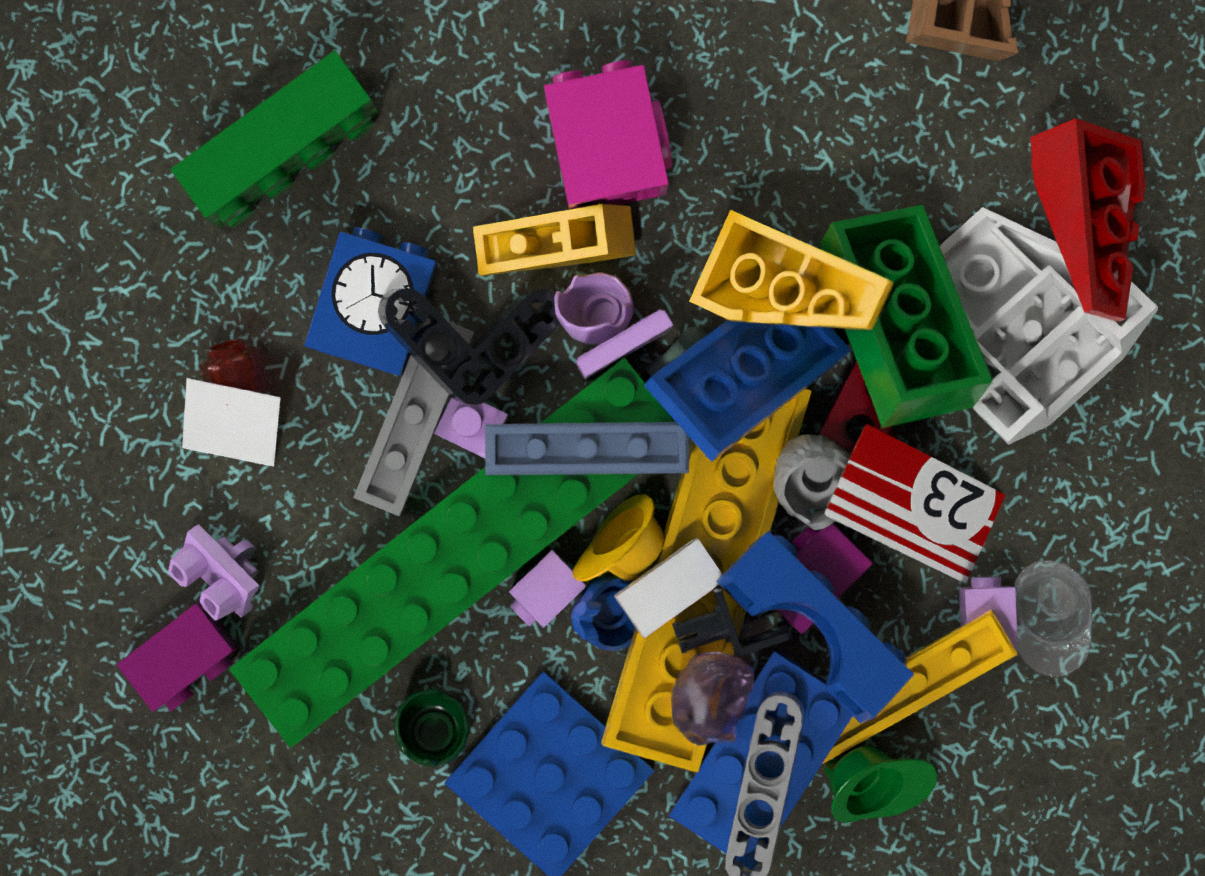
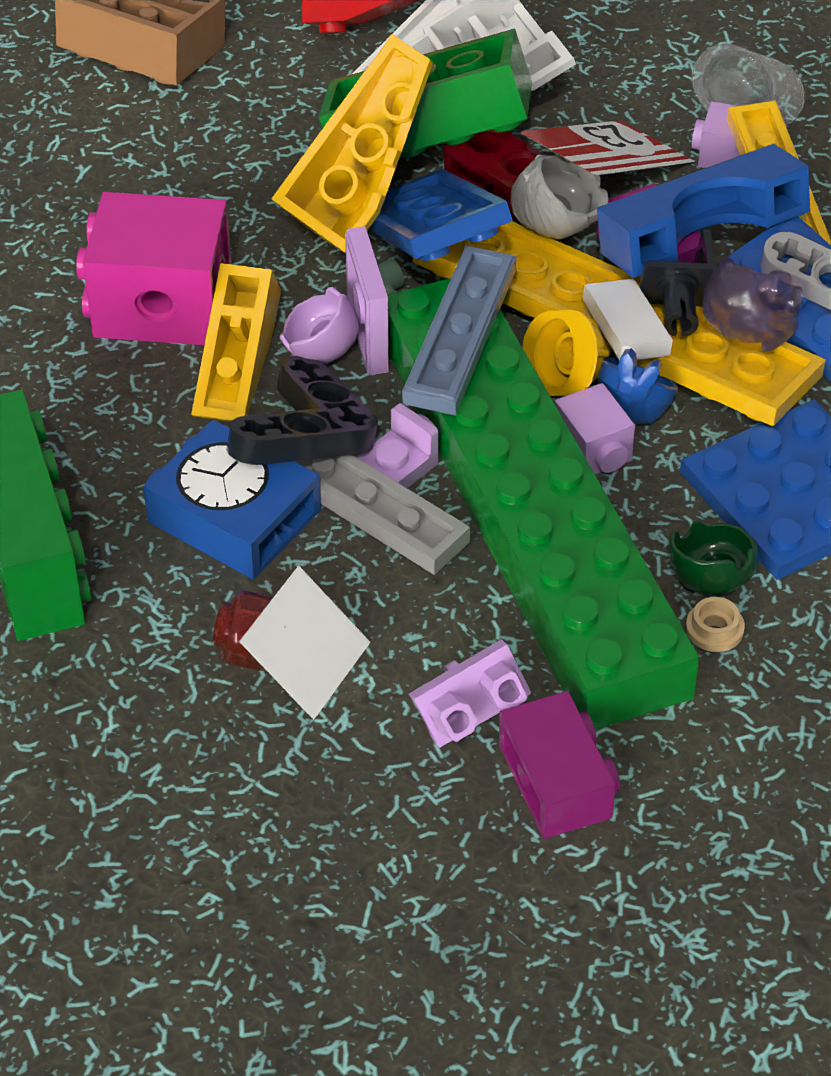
camera: 70 degrees left, 40 degrees down
(357, 755) = (715, 612): none -> tan plate

